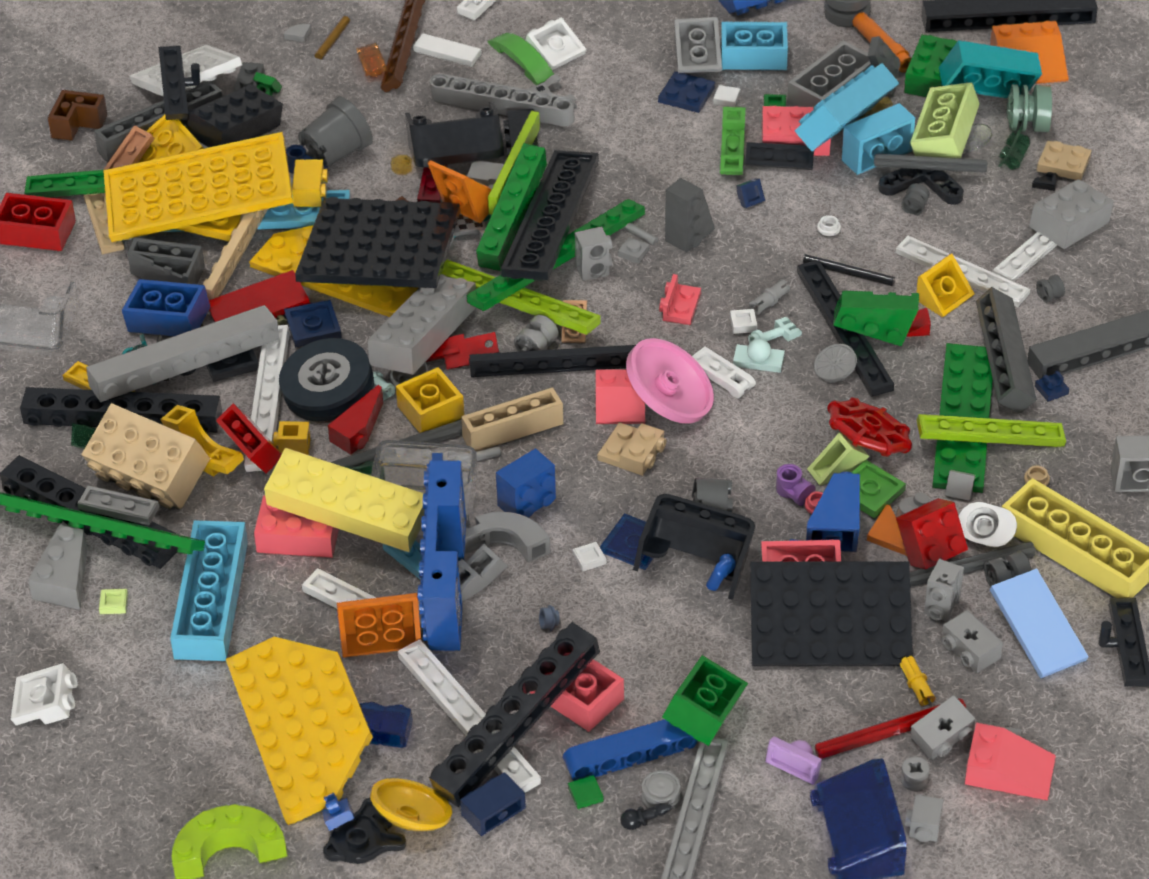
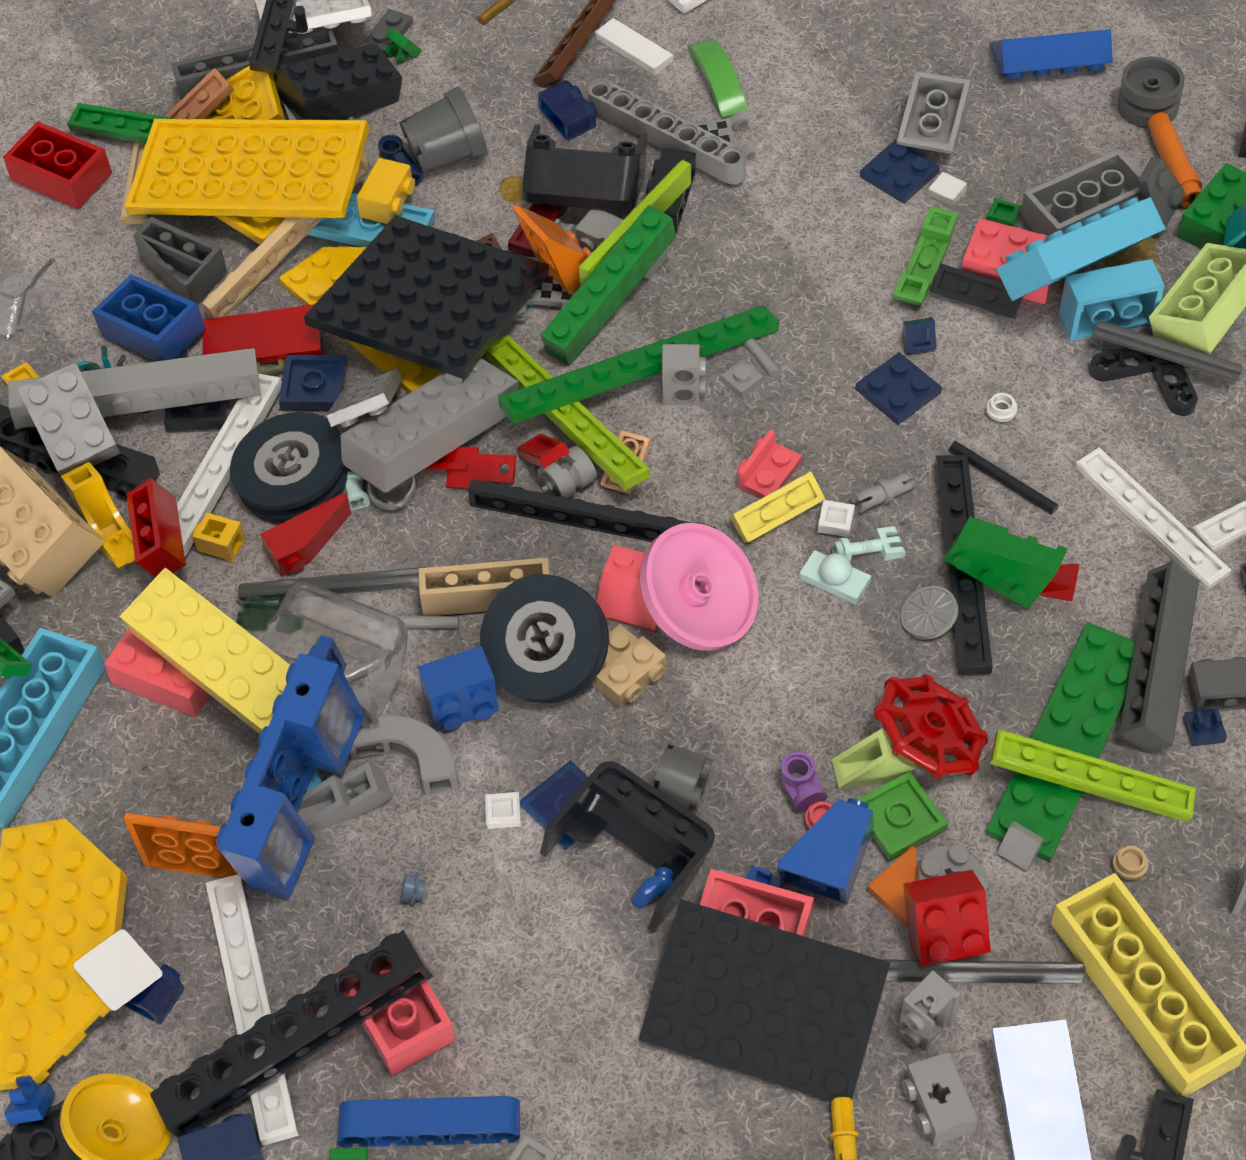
camera: 20 degrees right, 10 degrees up
(76, 110) = (167, 30): reddish brown brick -> none
(150, 379) = (68, 419): none -> light grey brick
(331, 589) = (177, 778): white plate -> none
(364, 319) = (364, 397): none -> light grey plate
(367, 710) = (117, 969): none -> white sticker
(371, 60) = (537, 40): clear orange slope -> none
(418, 101) = (567, 109): none -> clear blue brick
(430, 400) = (398, 531): yellow brick -> none
(512, 325) = (542, 450): none -> red tile
(550, 215) = (649, 309): black plate -> none
(556, 43) = (763, 69): white plate -> none
(594, 418) = (512, 640): none -> black wheel
(686, 215) = (817, 353): dark grey wedge -> none
(699, 323) = (777, 507): none -> light yellow plate
(704, 700) = (542, 1088): green brick -> none
(724, 372) = (780, 586): white plate -> none
(749, 231) = (898, 388): none -> dark blue plate
(754, 45) = (1006, 128): medium azure brick -> none
(915, 199) = (1129, 397): dark grey wheel -> none
(943, 286) = (1115, 538): yellow slope -> none
(987, 524) = (1029, 923): white piece -> none
(1004, 569) = (1044, 1002): dark grey wheel -> none

